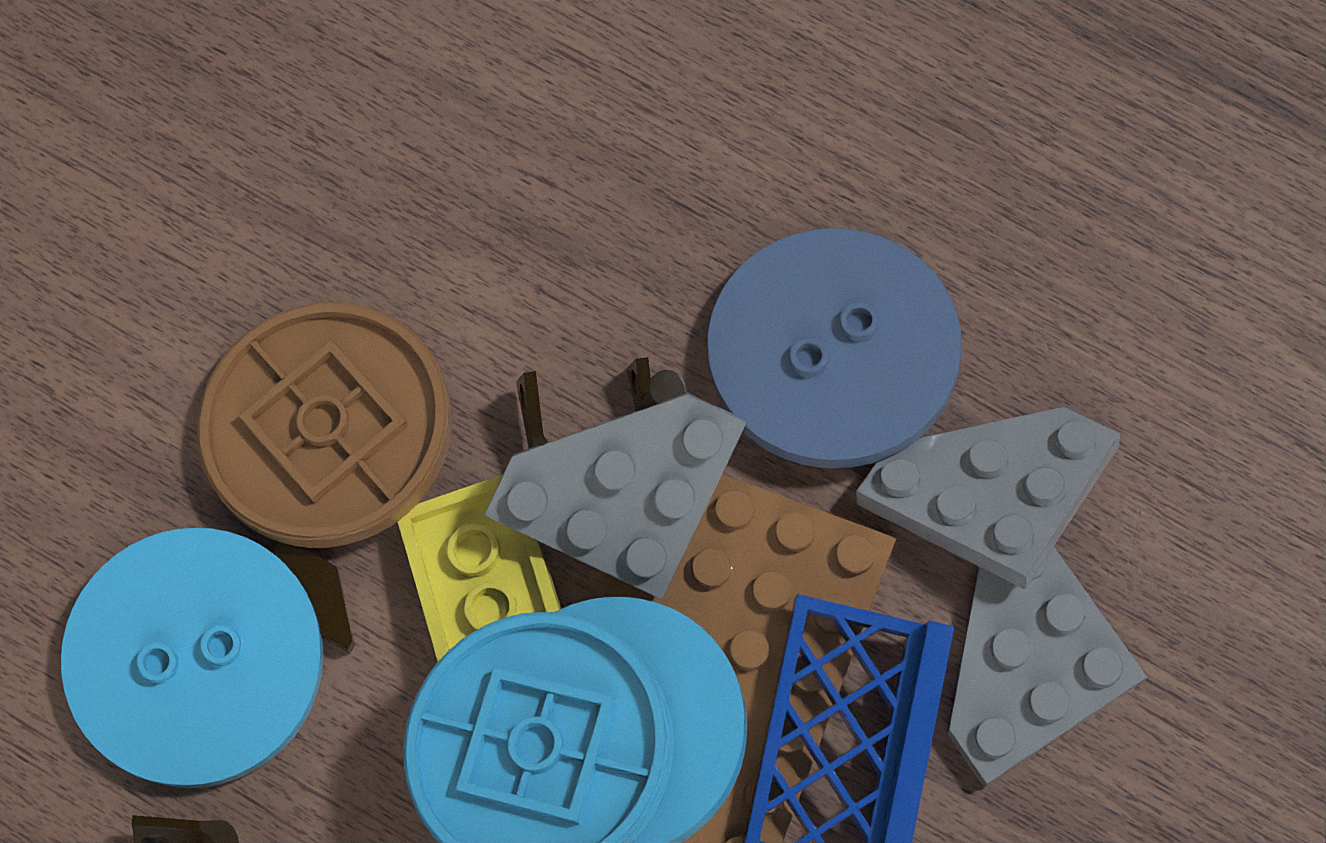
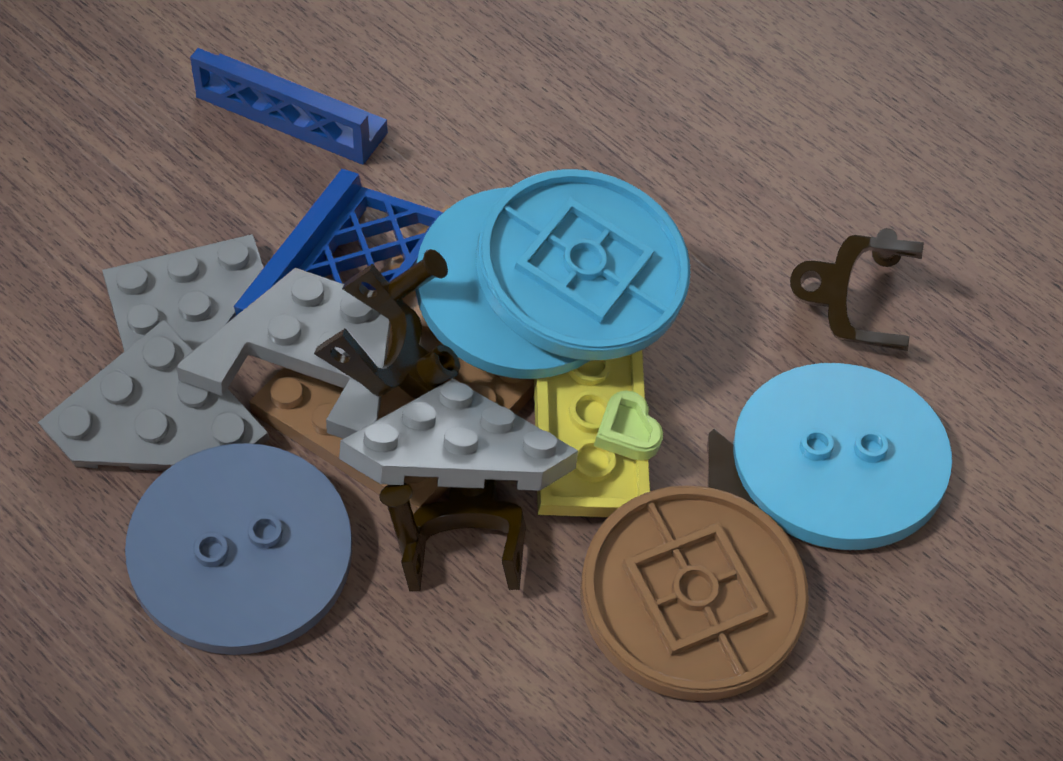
camera: 165 degrees left, 20 degrees down
(440, 588) = (628, 428): none -> yellowish green tile
(716, 592) = (408, 362): none -> dark brown piece
(836, 609) = (285, 330): none -> light grey wing

